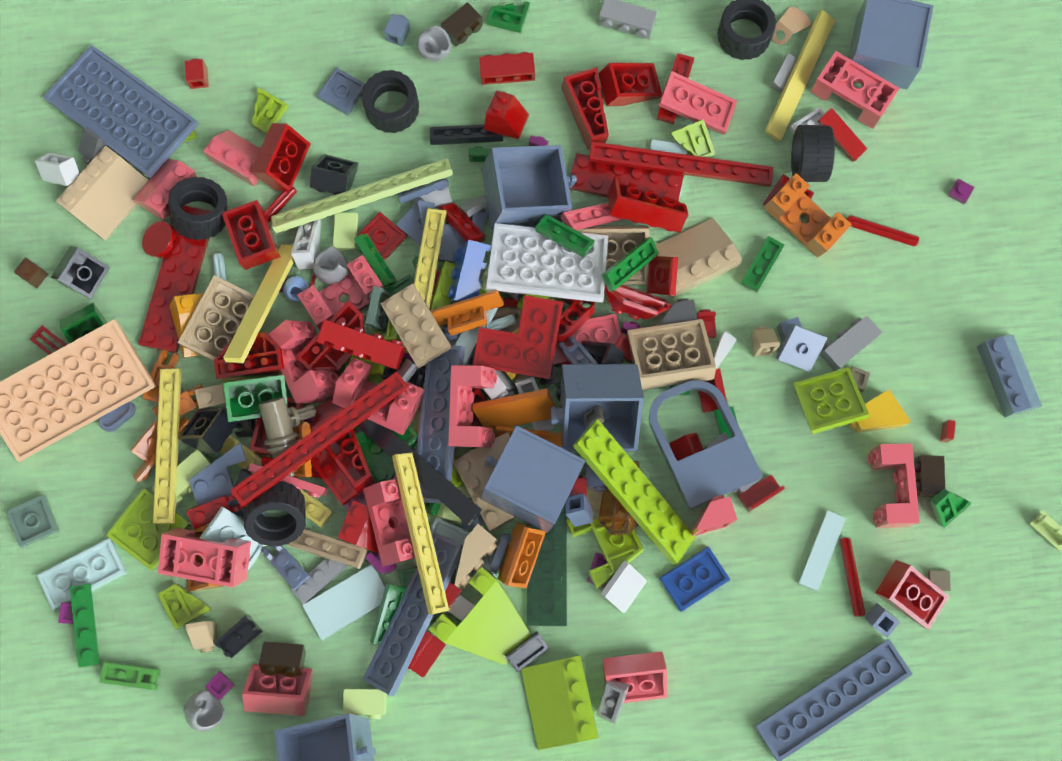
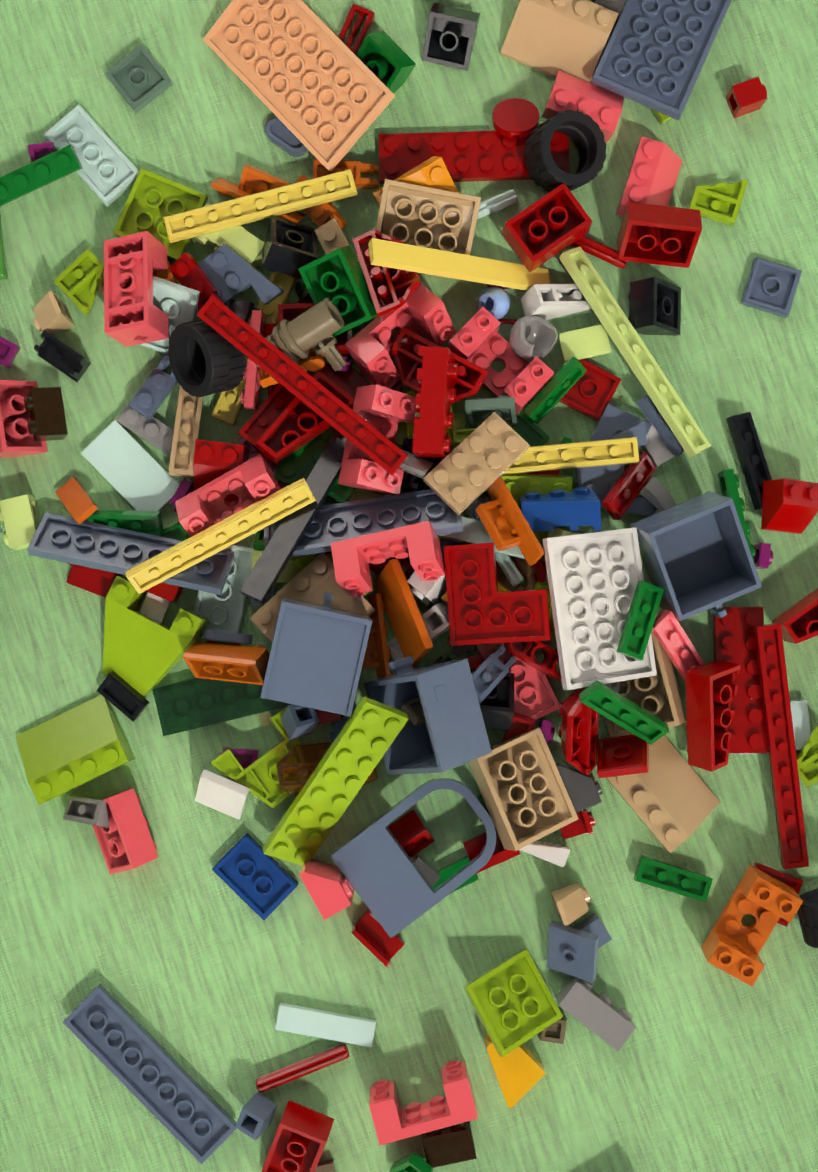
camera: 75 degrees right, 10 degrees up
(359, 651) = (76, 500): none -> orange tile
(385, 82) = (793, 334): black tyre -> none
(475, 549) = (223, 607): tan slope -> none
(883, 230) = (758, 1025): red axle -> none
(948, 431) = (511, 1156): red tile -> none

